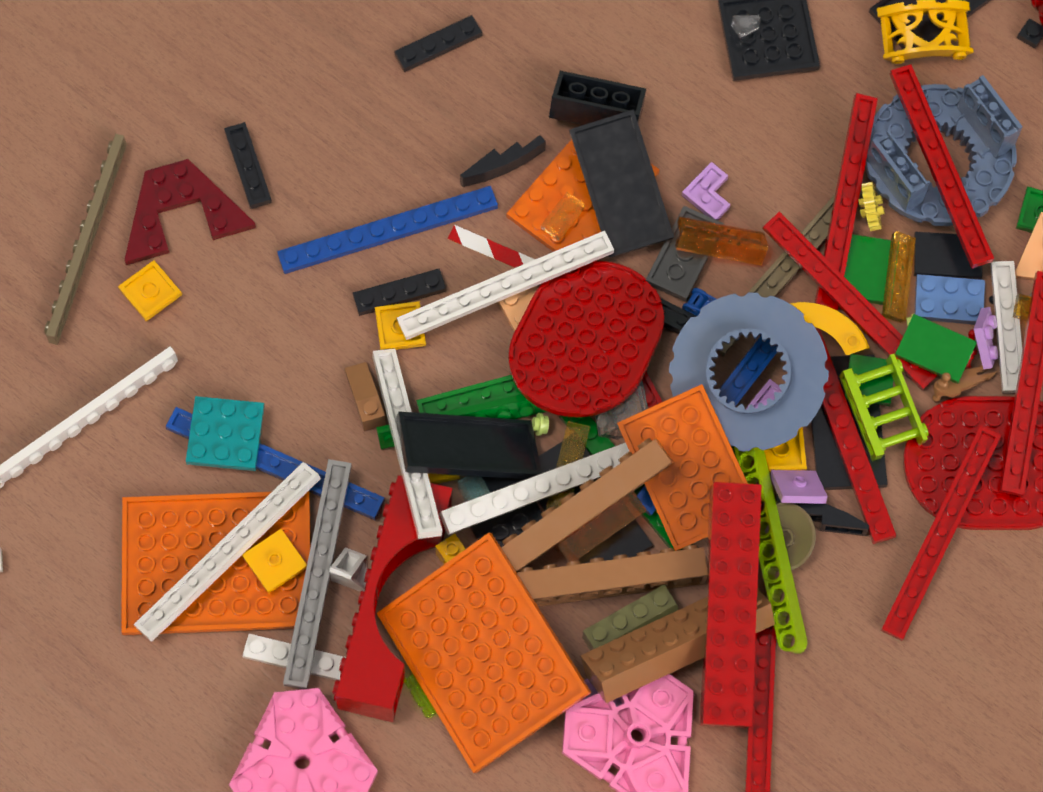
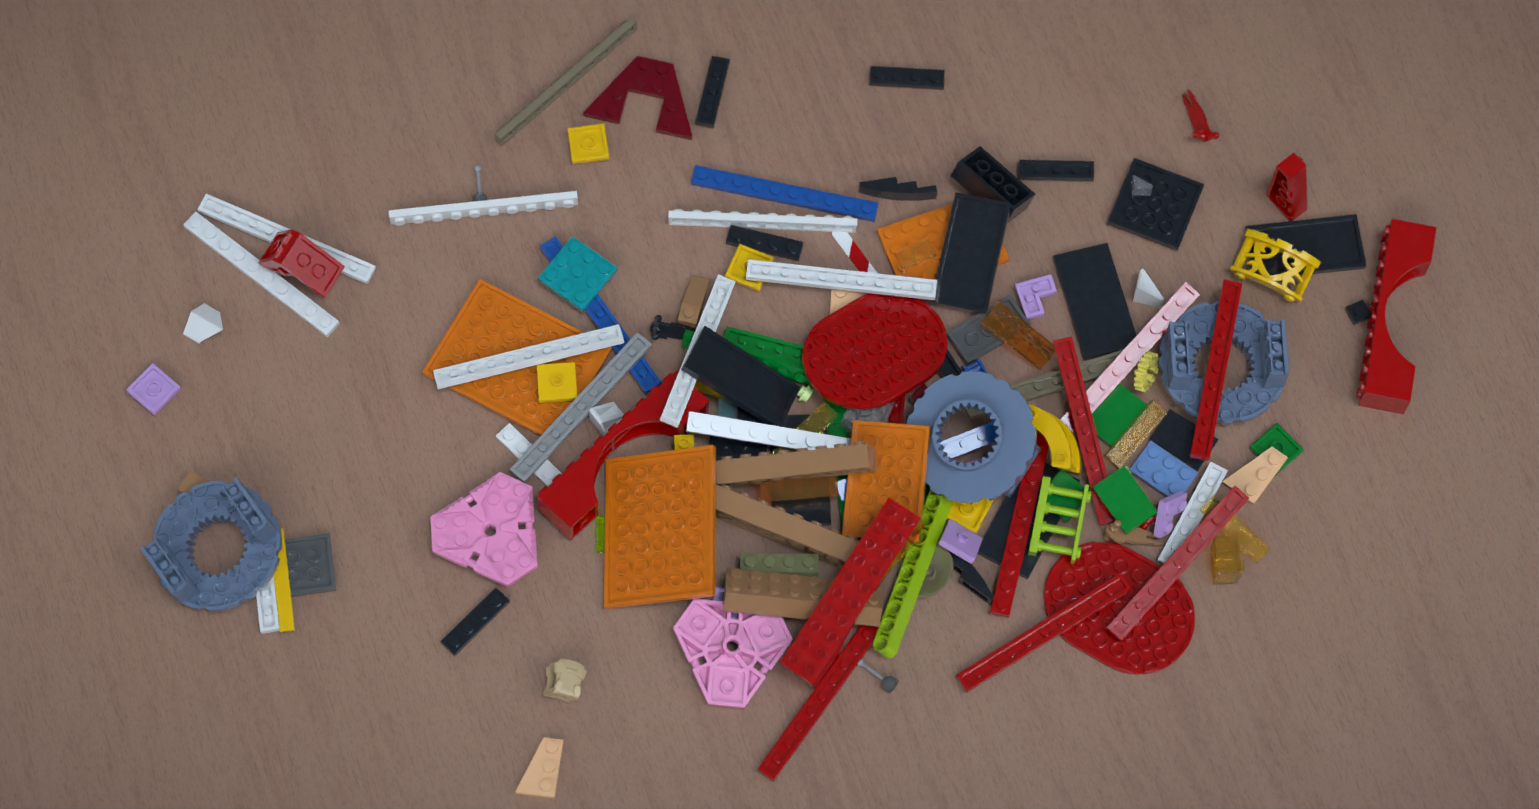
camera: 30 degrees right, 0 degrees up
(67, 410) = (479, 196): none -> hinge
(354, 440) = (668, 330): none -> black piece
(377, 273) = (758, 221): none -> white plate
(648, 54) = (1056, 170): none -> black plate
(658, 360) = (919, 393): none -> dark red tile
(771, 164) = (1095, 300): none -> black tile
(816, 126) = (1146, 291): none -> white slope
(817, 676) = (888, 682): none -> dark grey hinge

